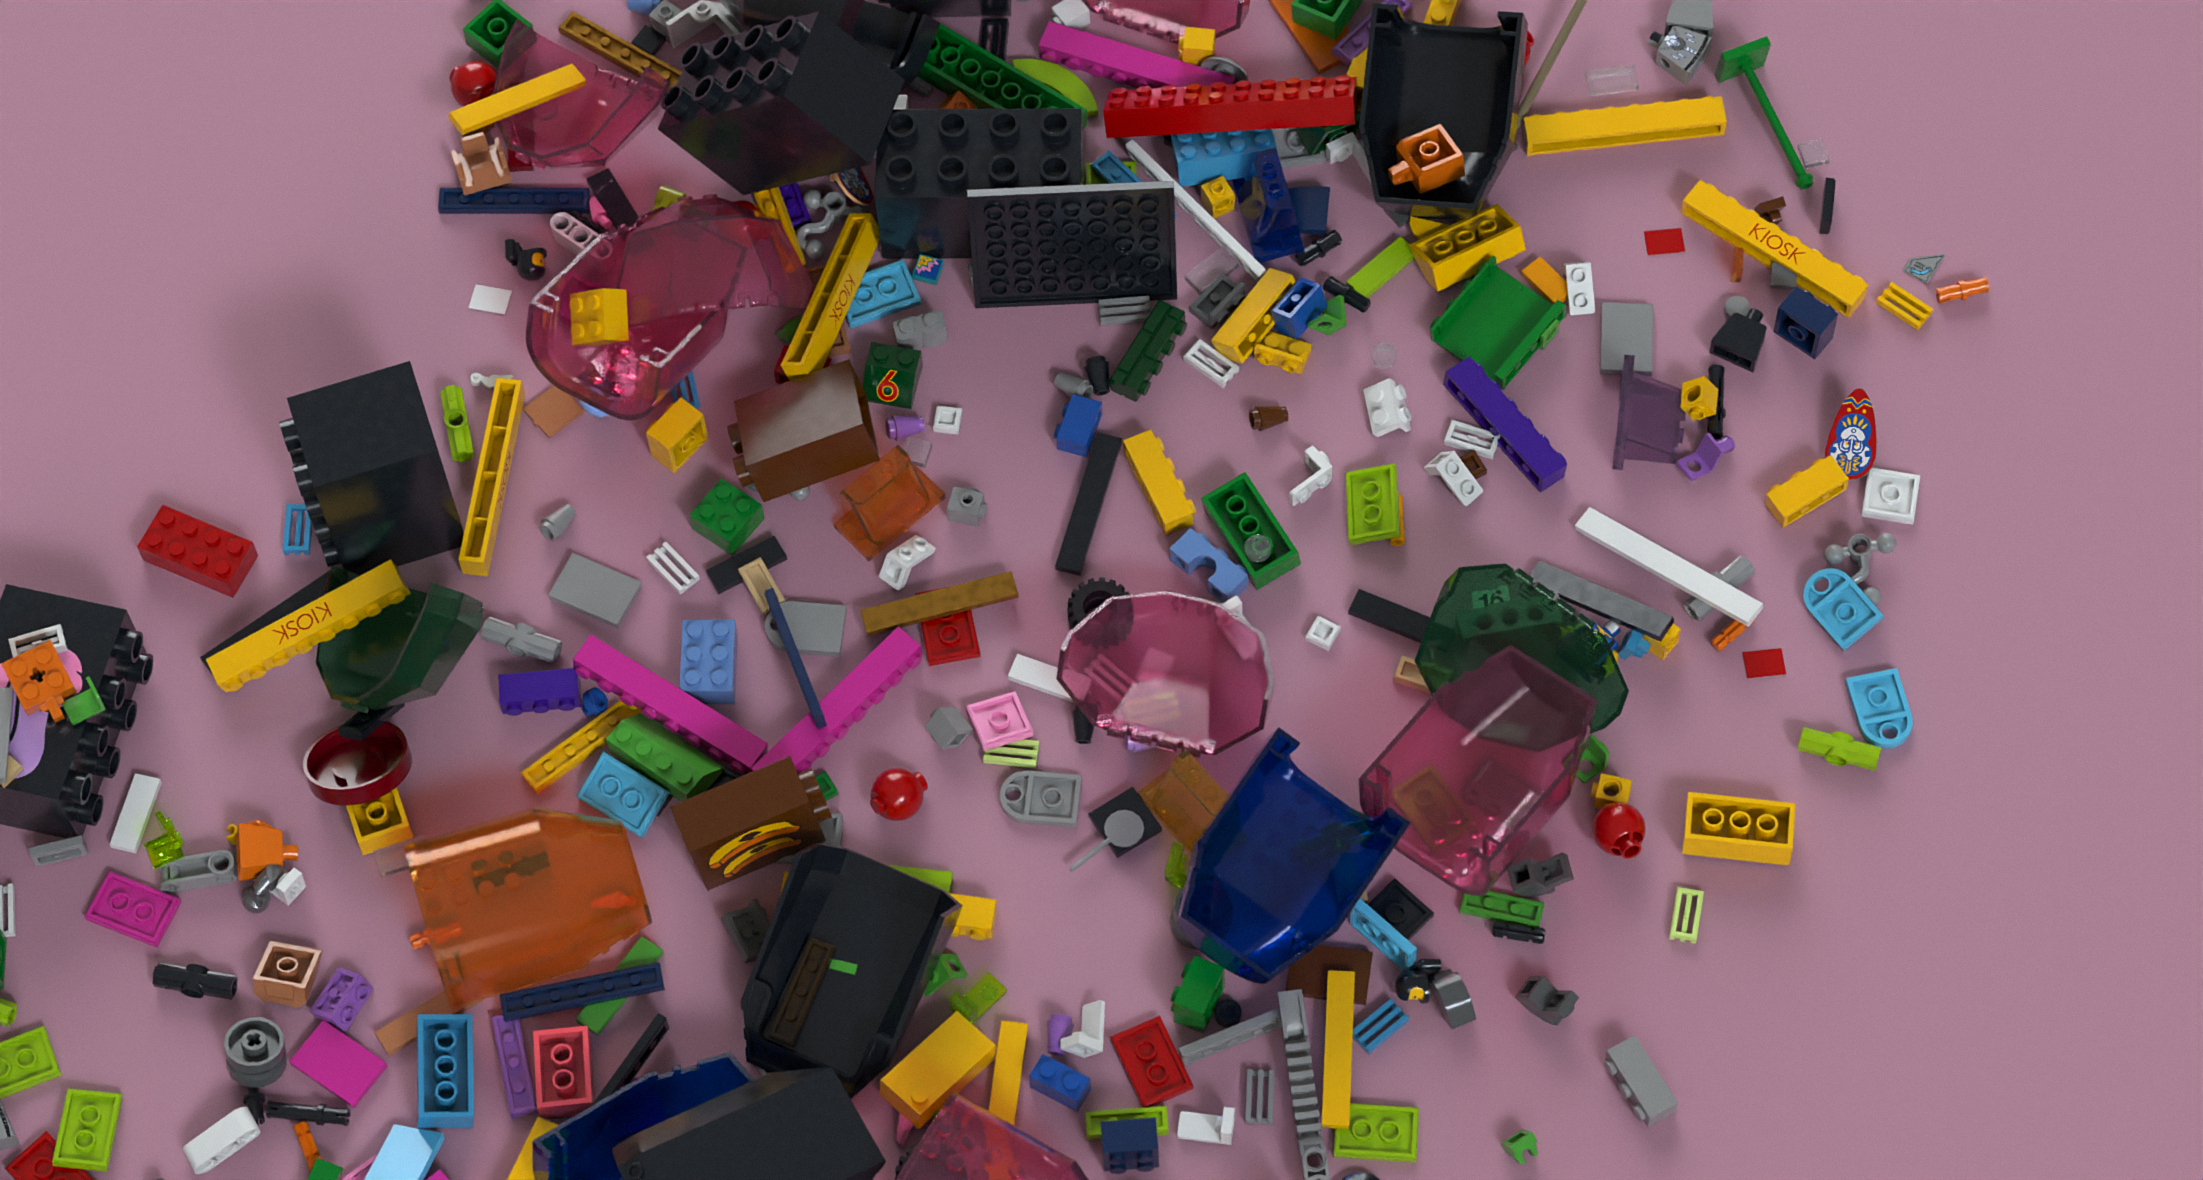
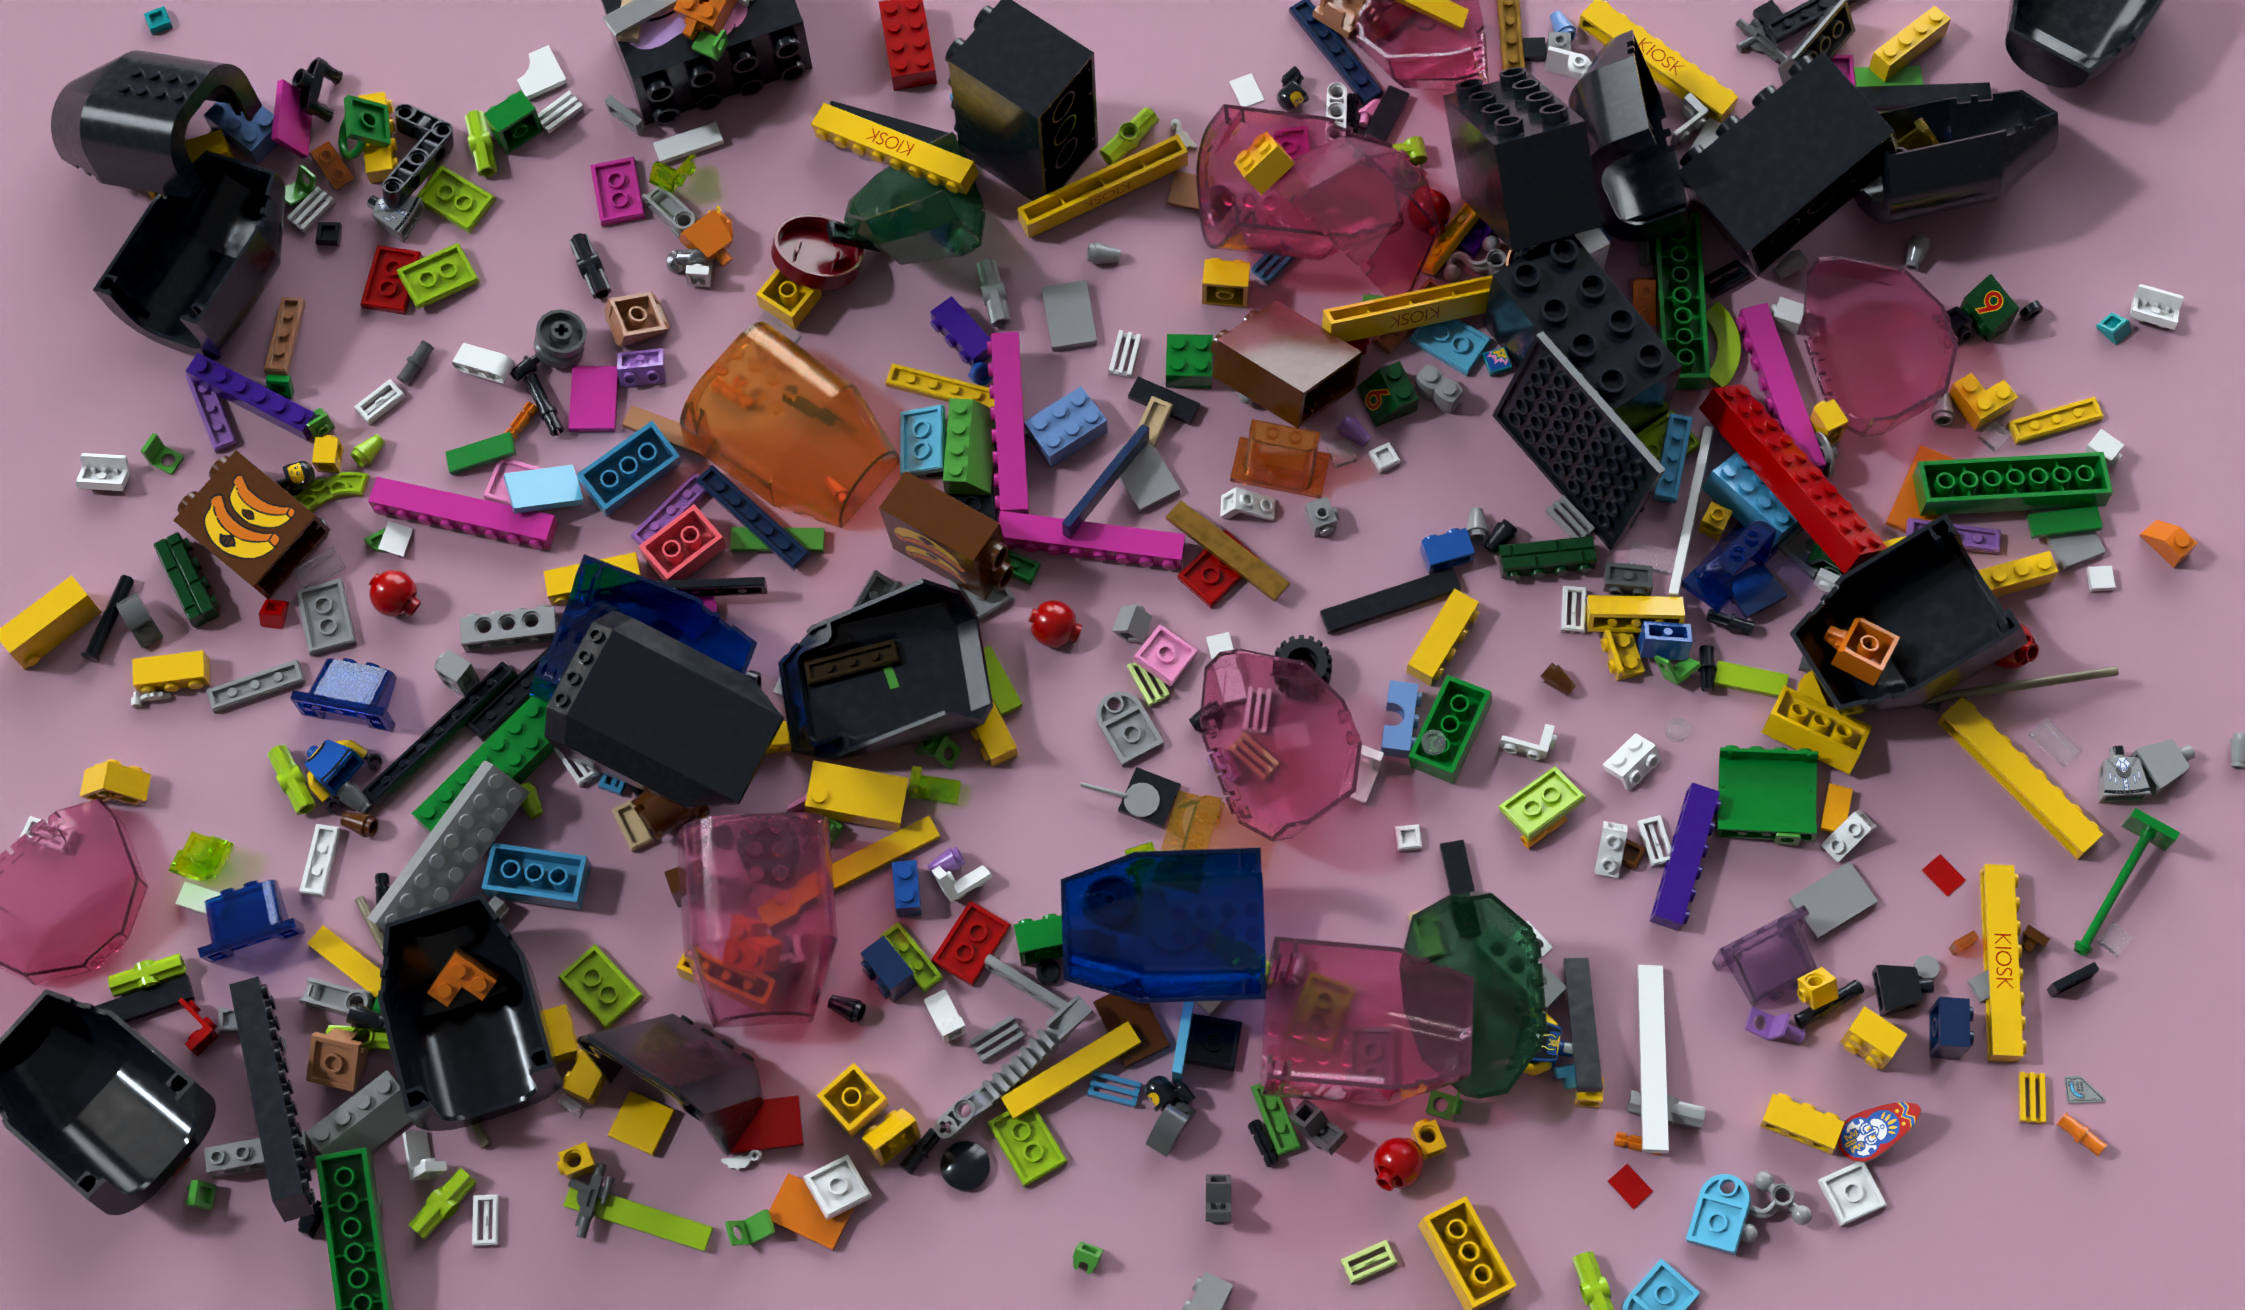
camera: 55 degrees right, 5 degrees up
(1773, 386) = (1872, 1038): none -> yellow brick

